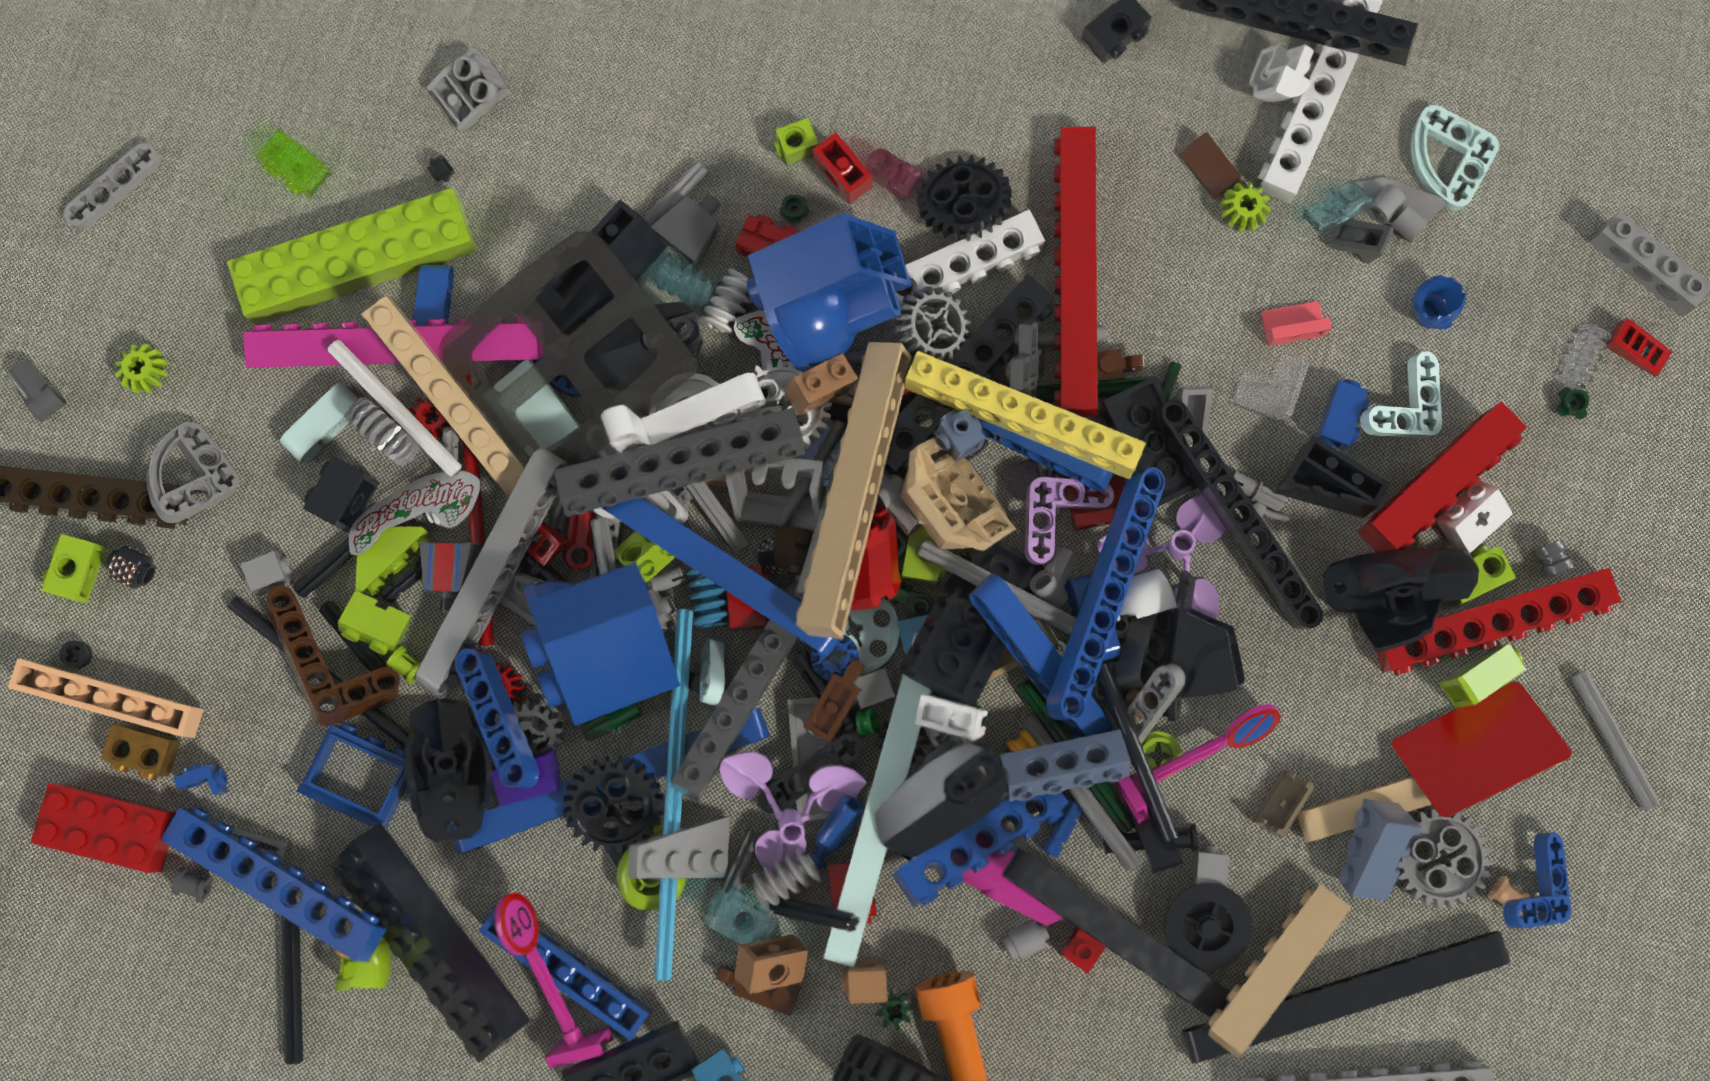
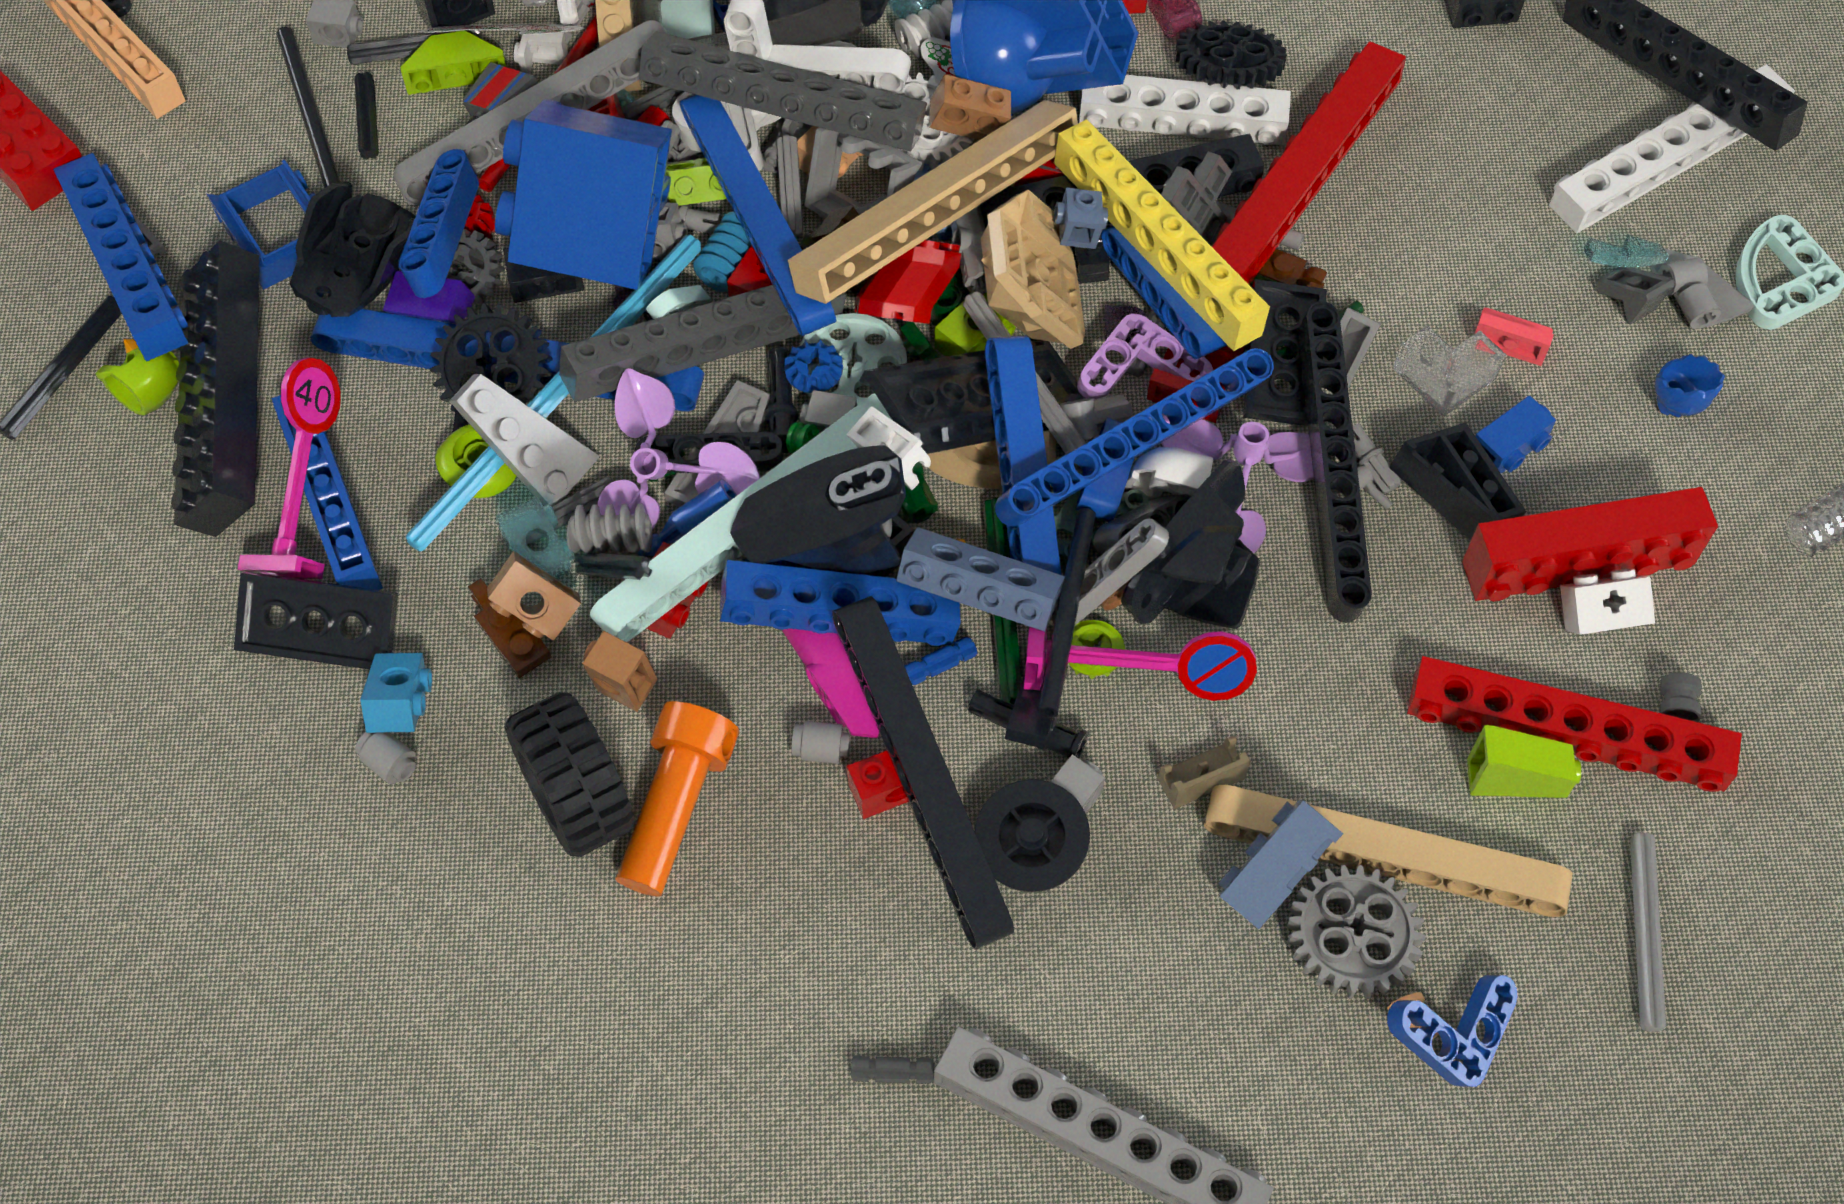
camera: 30 degrees right, 20 degrees down
(141, 747) = (100, 98): pearl gold brick -> none
(192, 884) = (51, 233): dark grey bush -> none
(197, 775) = (134, 147): blue bracket -> none
(316, 667) = (315, 144): reddish brown beam -> none
(373, 625) = (393, 107): lime brick -> none
(402, 581) = (447, 95): black axle -> none
(404, 664) = (392, 152): lime bush -> none
(609, 722) = (551, 309): dark green axle -> none
(835, 703) = (784, 395): reddish brown plate -> none
(895, 1019) = (628, 716): dark green gear -> none
(946, 323) = (1124, 120): light grey gear -> none
(1090, 805) = (984, 660): light grey axle -> none
(1210, 165) = (1509, 156): reddish brown slope -> none
(1249, 198) = (1524, 204): lime gear -> none
(1279, 970) = (1081, 926): tan brick -> none
(1281, 73) = (1636, 108): white brick -> none
(1365, 991) = (1150, 1014): black beam -> none
(1399, 591) = (1491, 615): black piece -> none
(1414, 415) = (1595, 476): light aqua beam -> none
(1481, 749) = (1473, 837): red sticker -> none
(1501, 573) = (1576, 672): lime brick -> none
(1581, 401) = (1800, 558): dark green plate -> none

